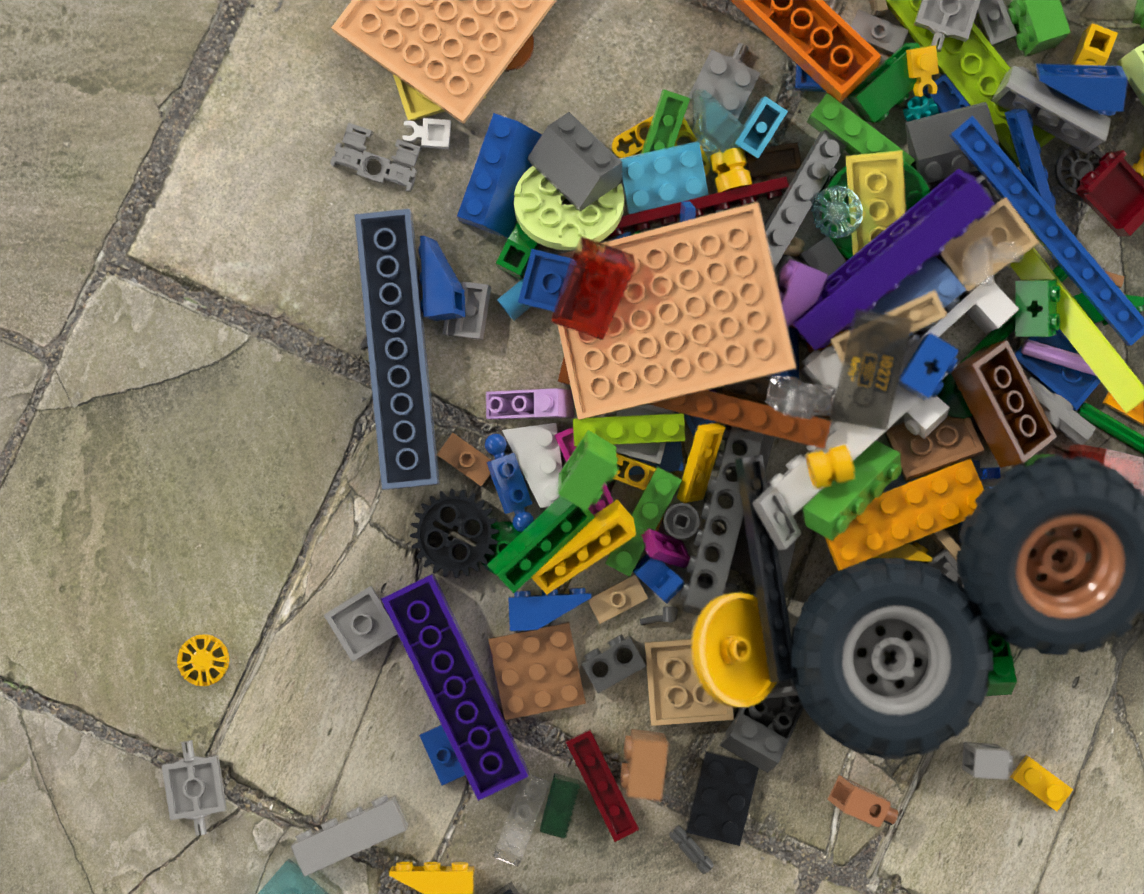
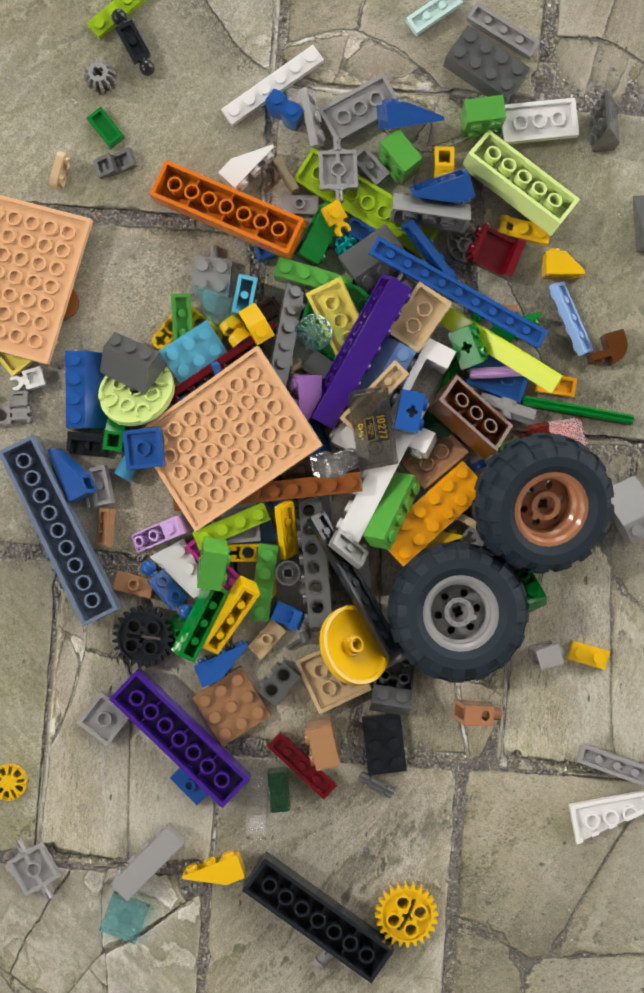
camera: 25 degrees left, 0 degrees up
(458, 369) = (105, 527): none -> medium nougat plate
(474, 248) = (85, 444): none -> black hinge
(593, 287) = (170, 442): clear red slope -> none
(665, 548) = (284, 594): magenta plate -> none
(763, 172) = (256, 324): none -> yellow slope
(830, 466) = (370, 501): yellow wheel -> none
(980, 260) = (417, 327): clear brick -> none

